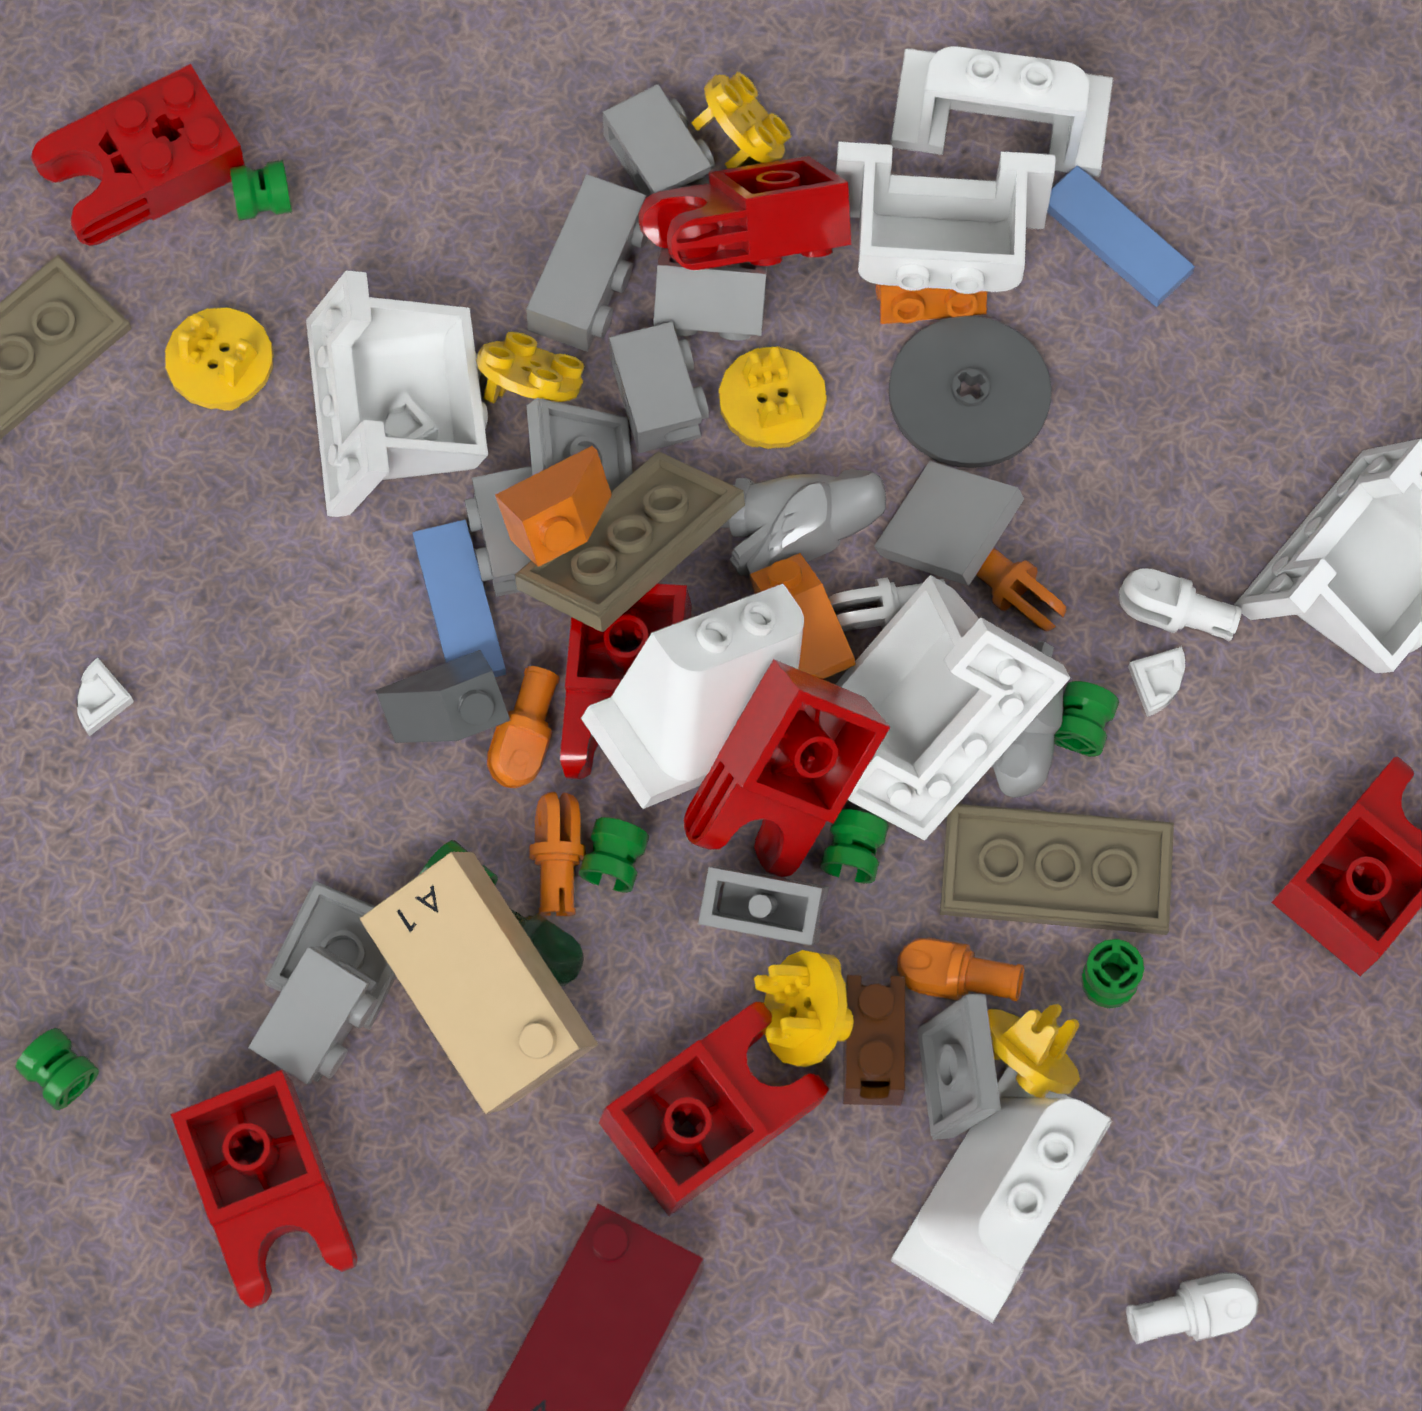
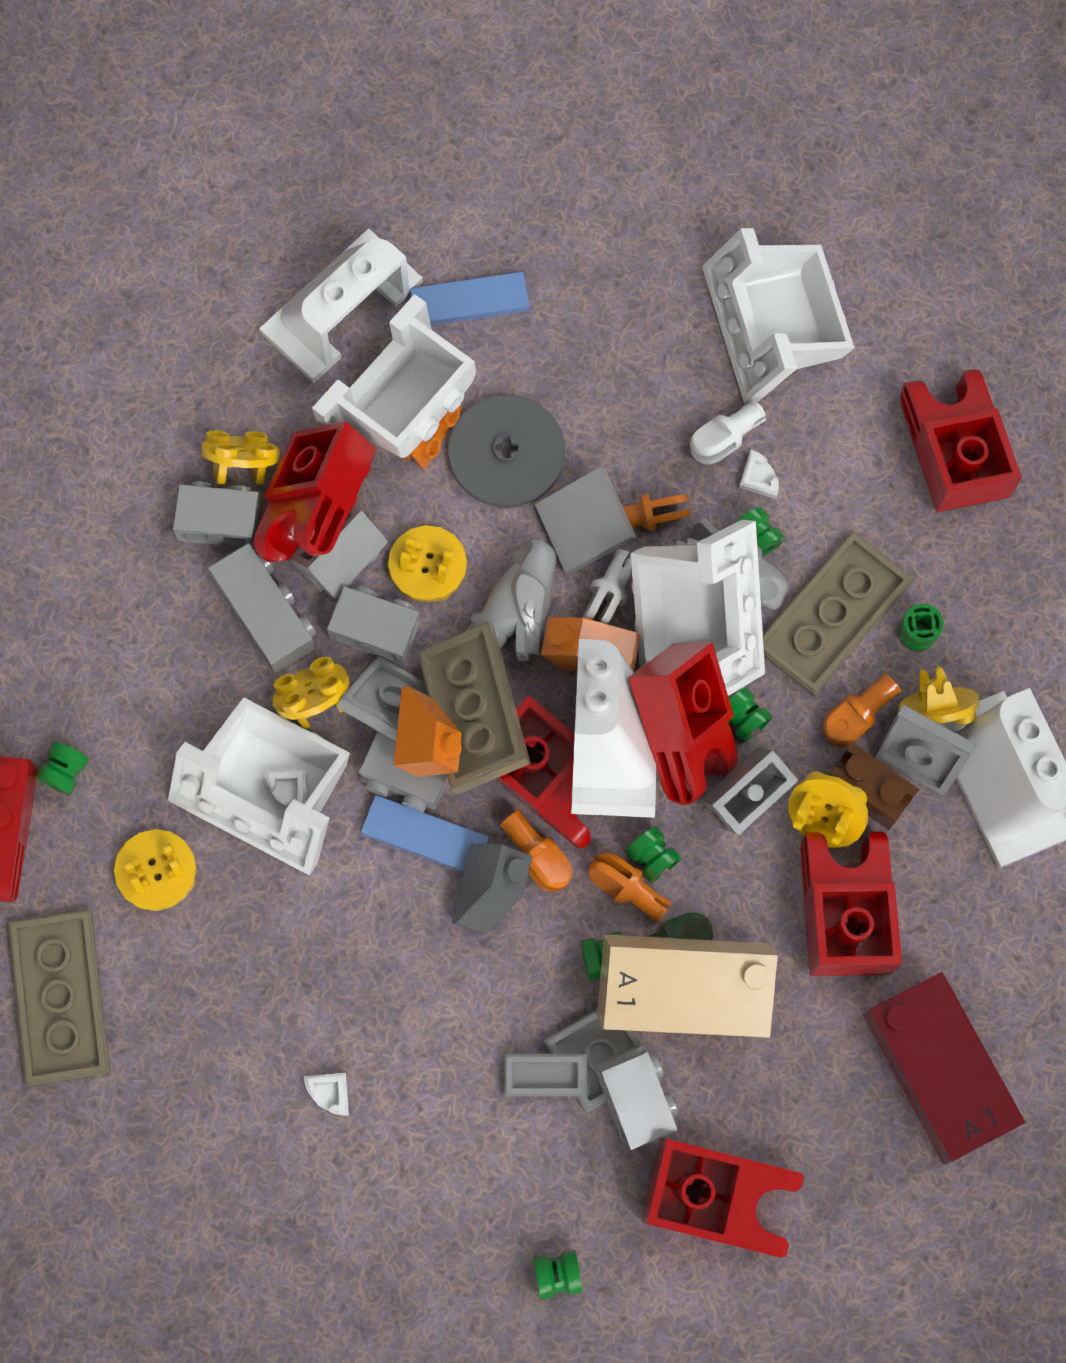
camera: 55 degrees left, 5 degrees up
(276, 908) = (546, 1074): none -> light grey tile

